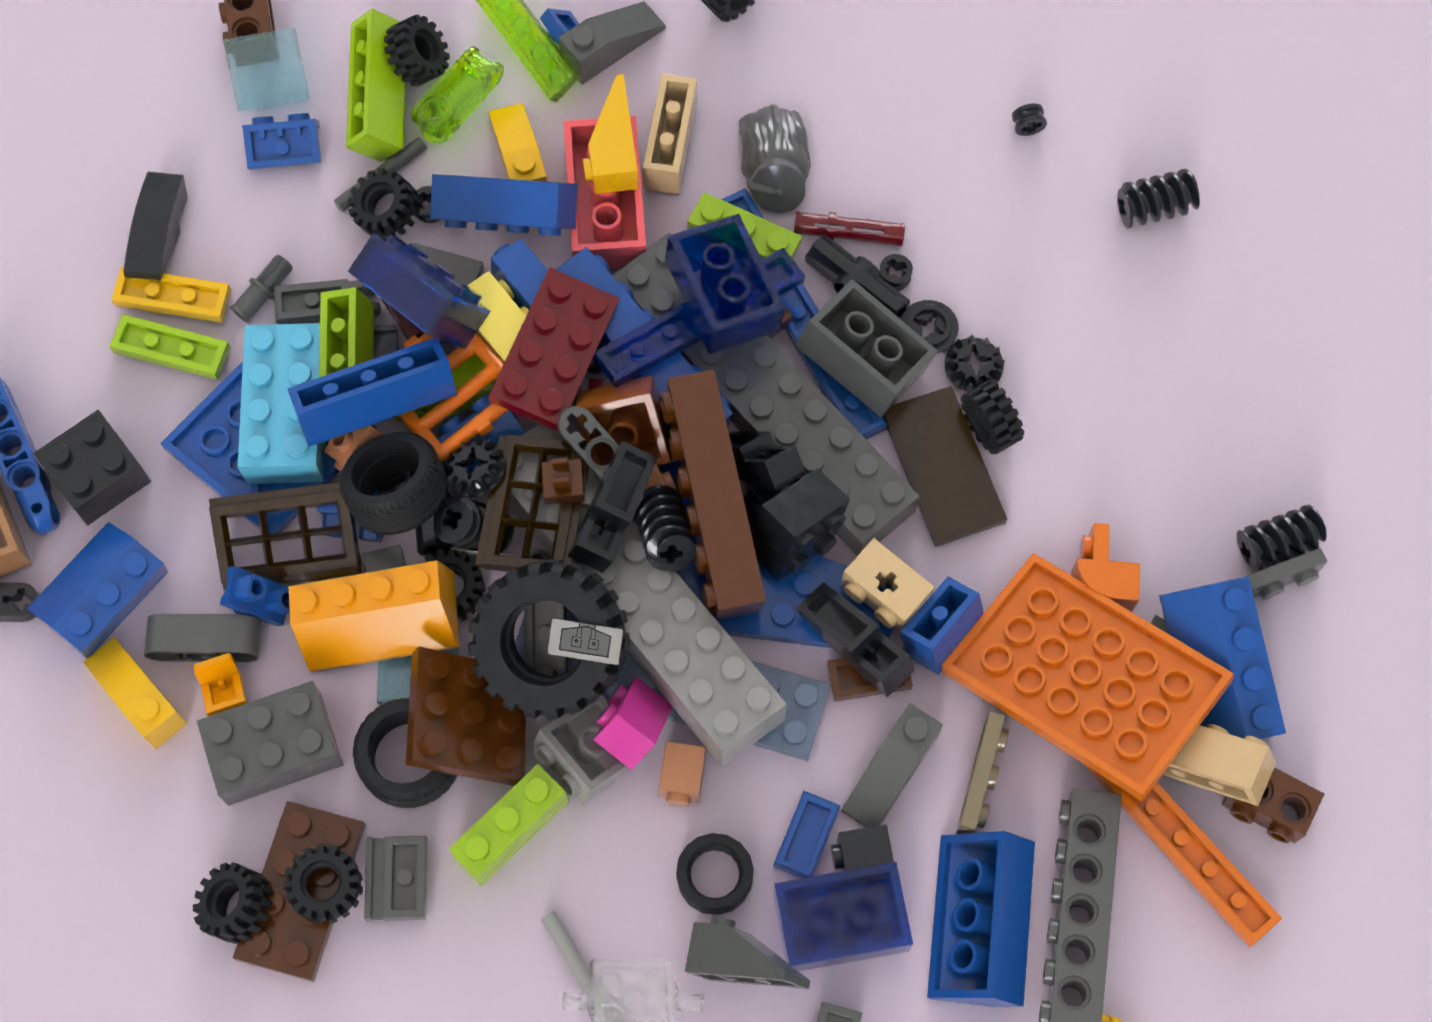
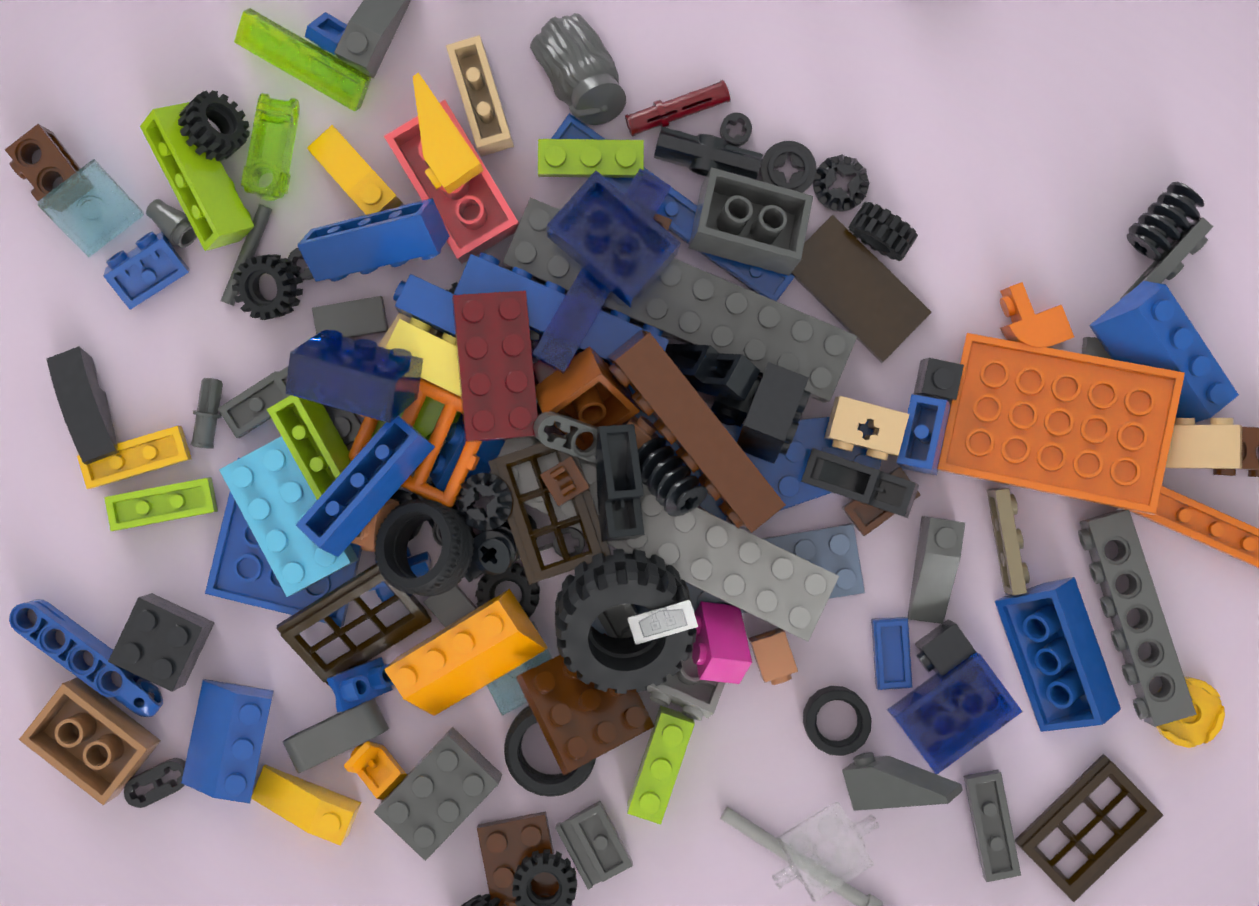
camera: 25 degrees left, 20 degrees up
(330, 116) = (171, 223): none -> dark grey cone
(986, 577) = (938, 379): none -> black brick

